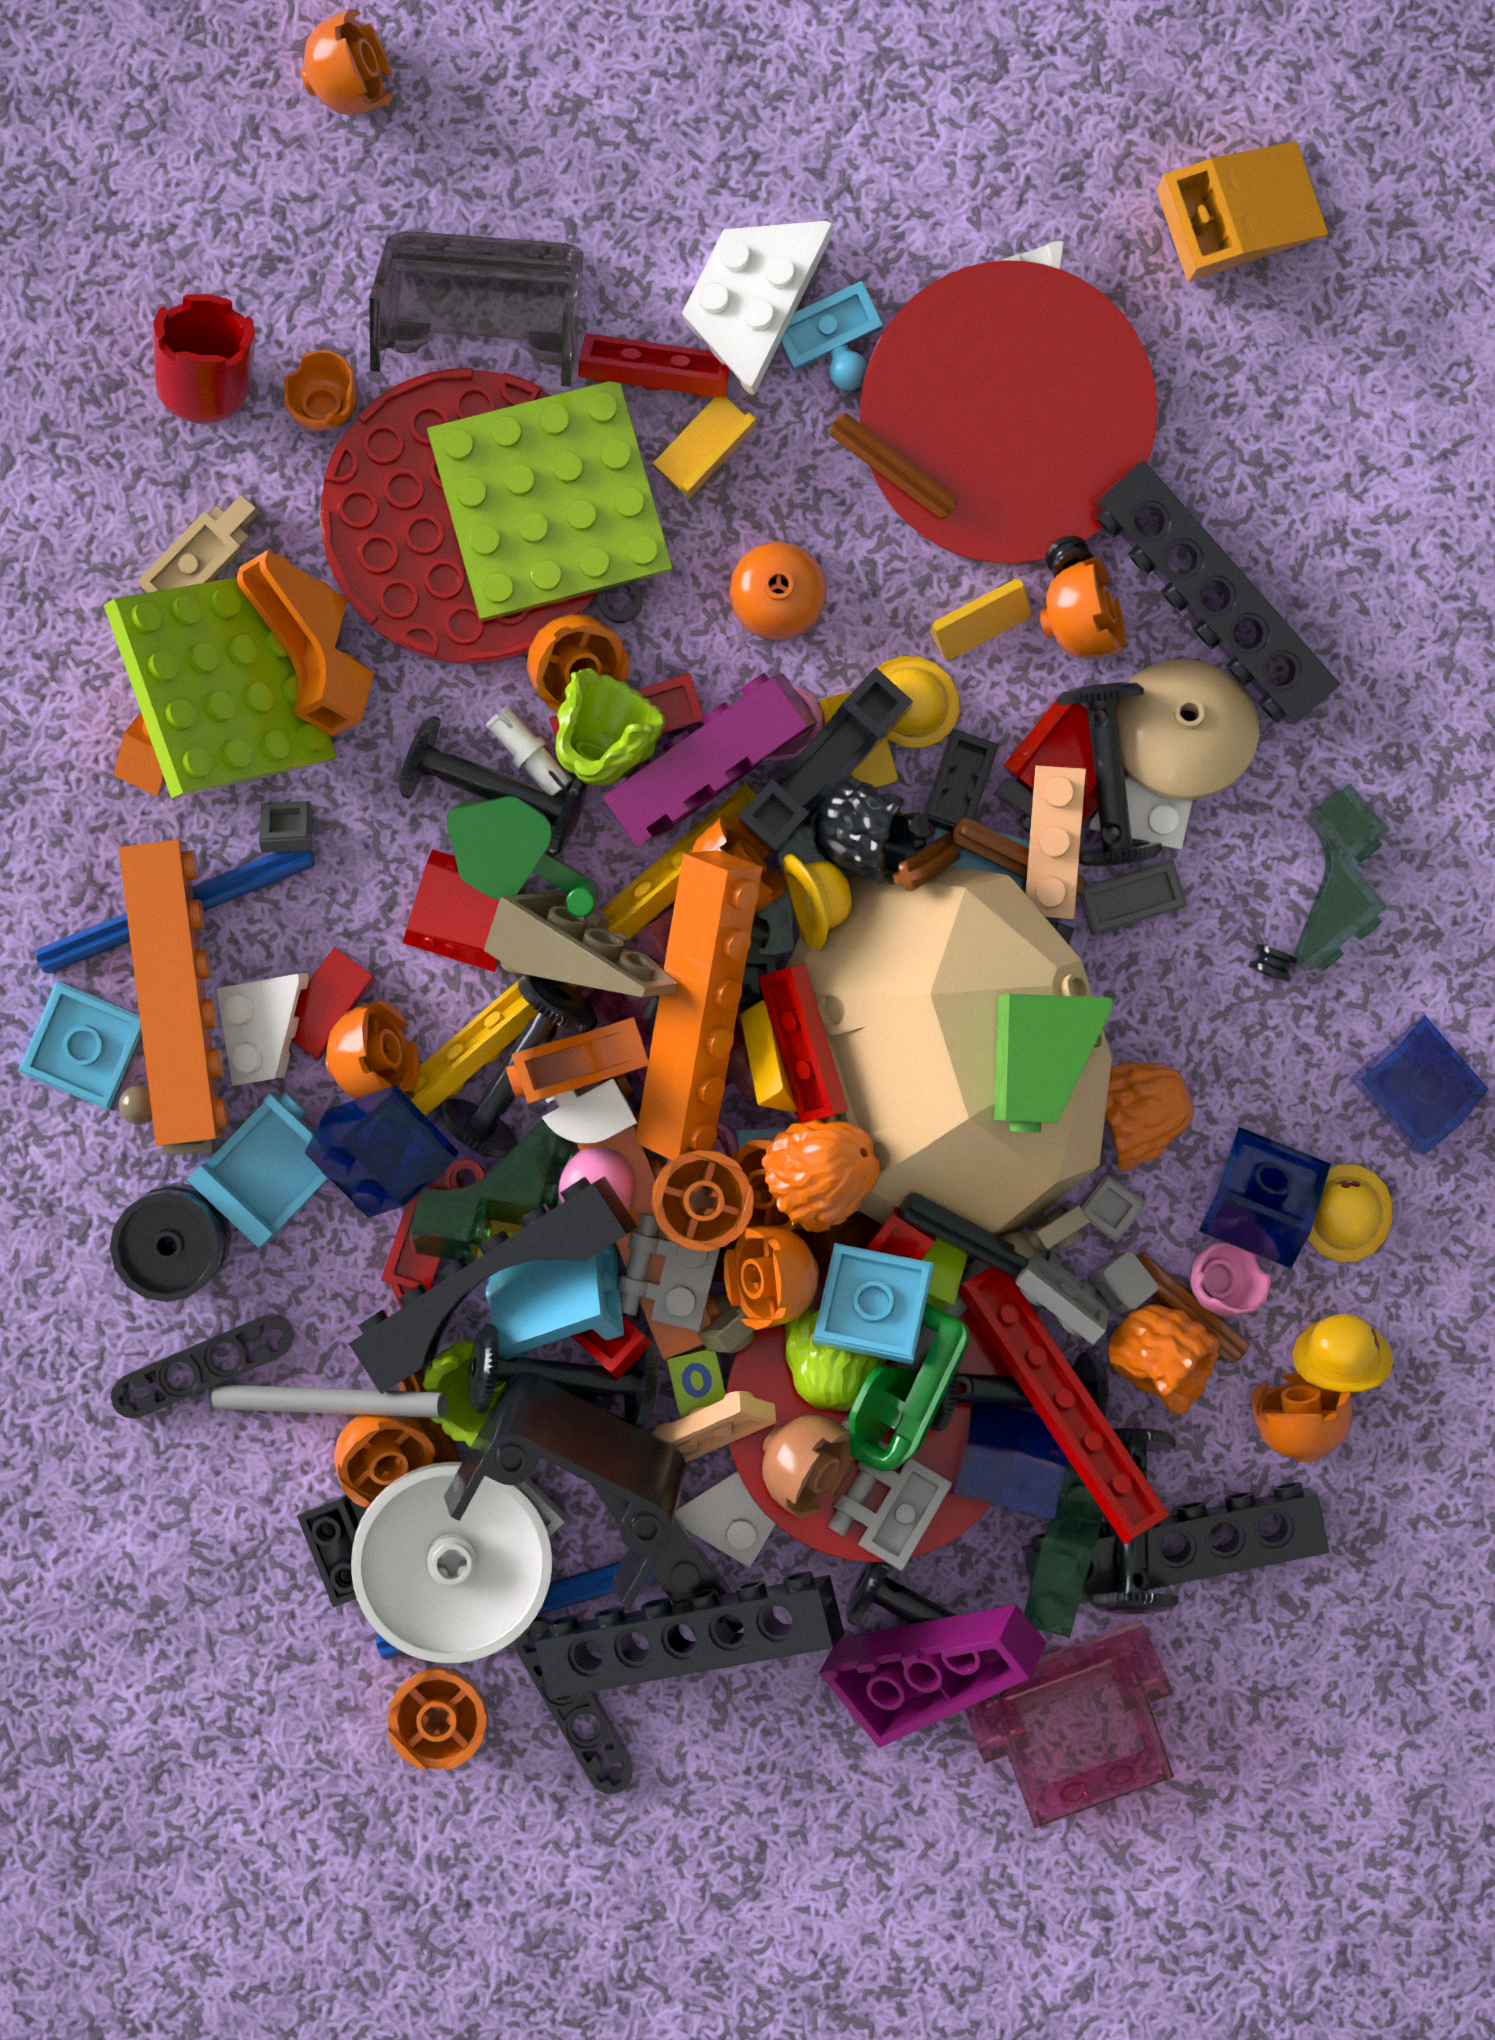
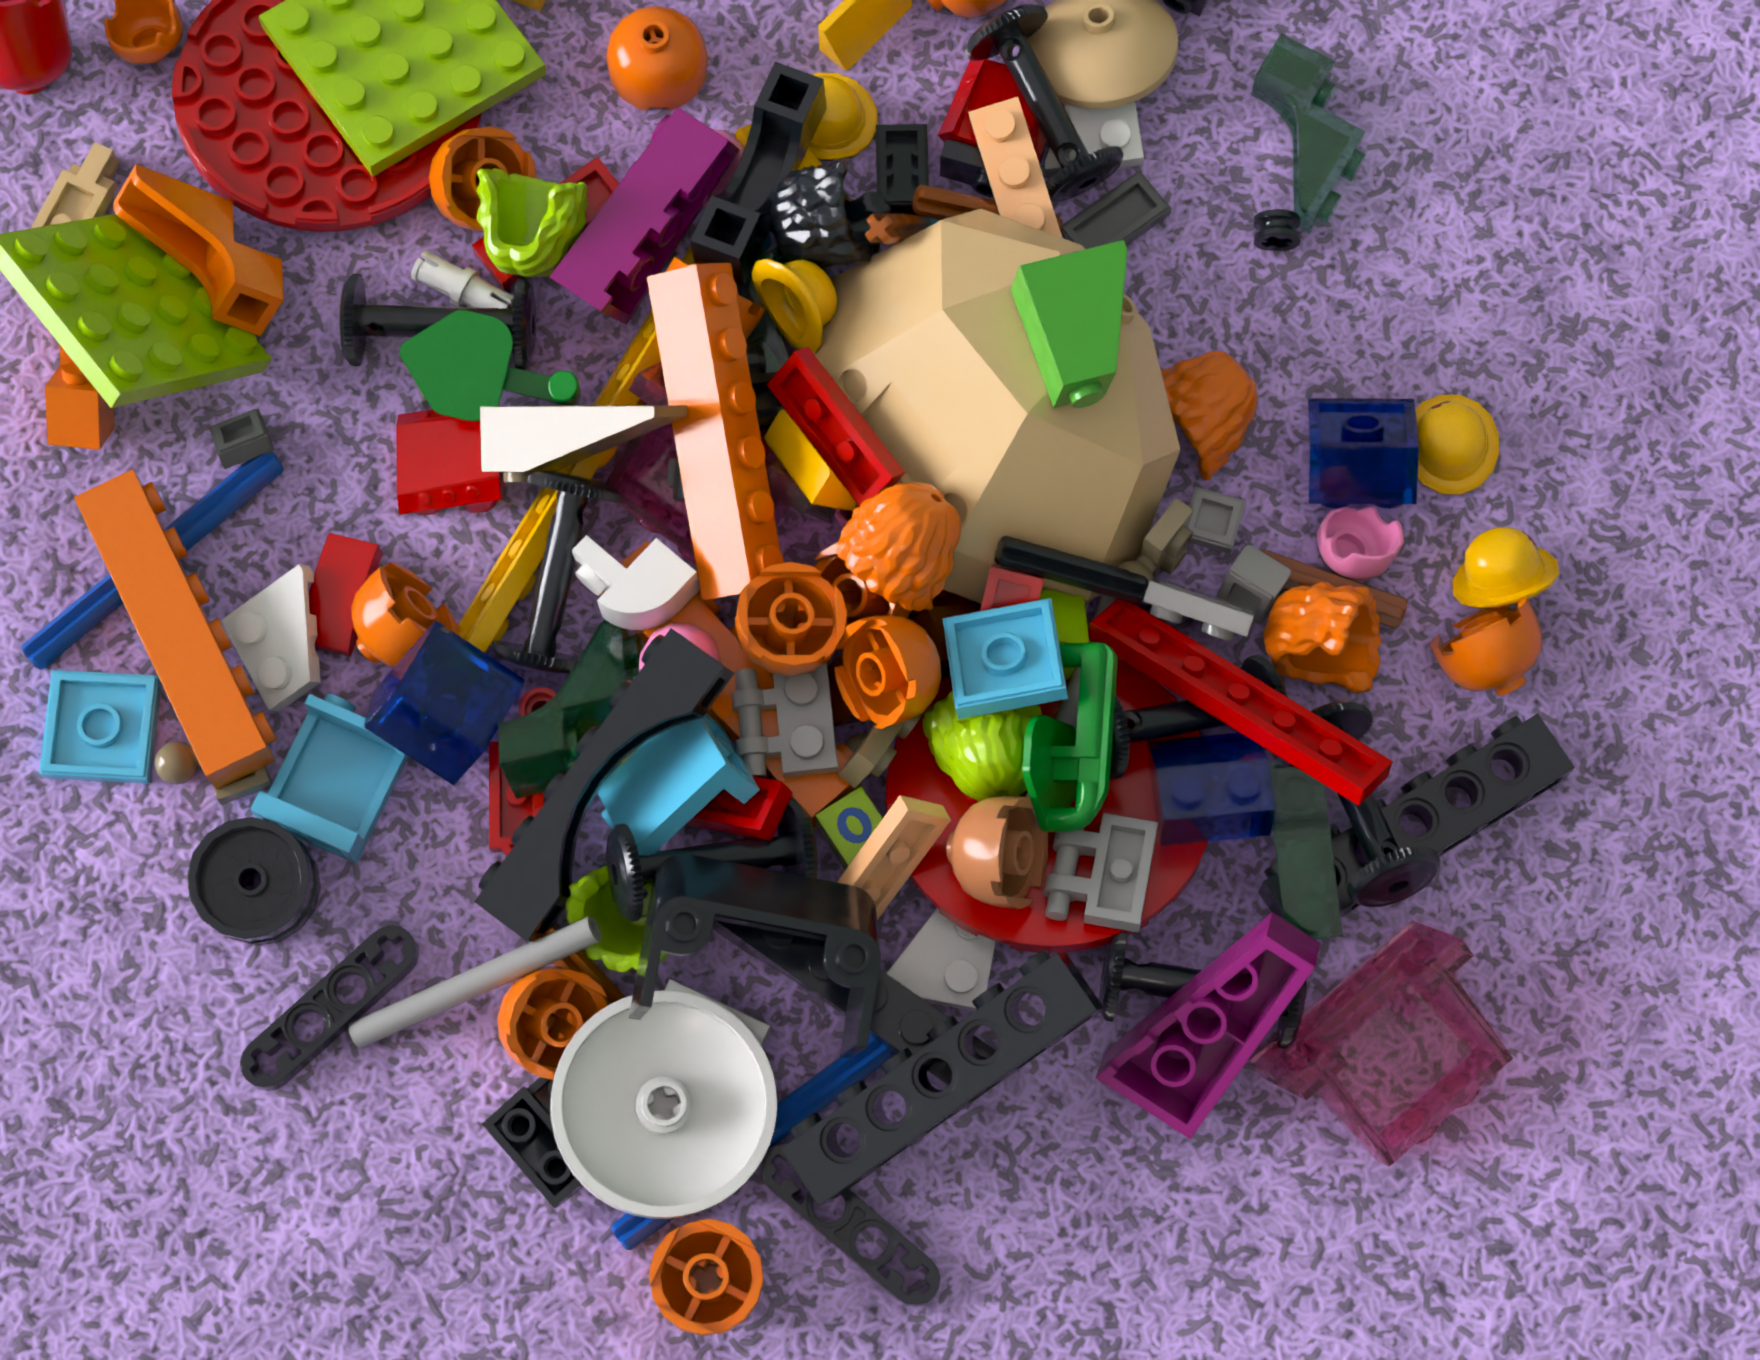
camera: 20 degrees left, 15 degrees down
(577, 1061) = (596, 536): orange arch -> none
(627, 613) = (517, 126): black bush -> none
(1420, 1086) = (1467, 298): clear blue slope -> none

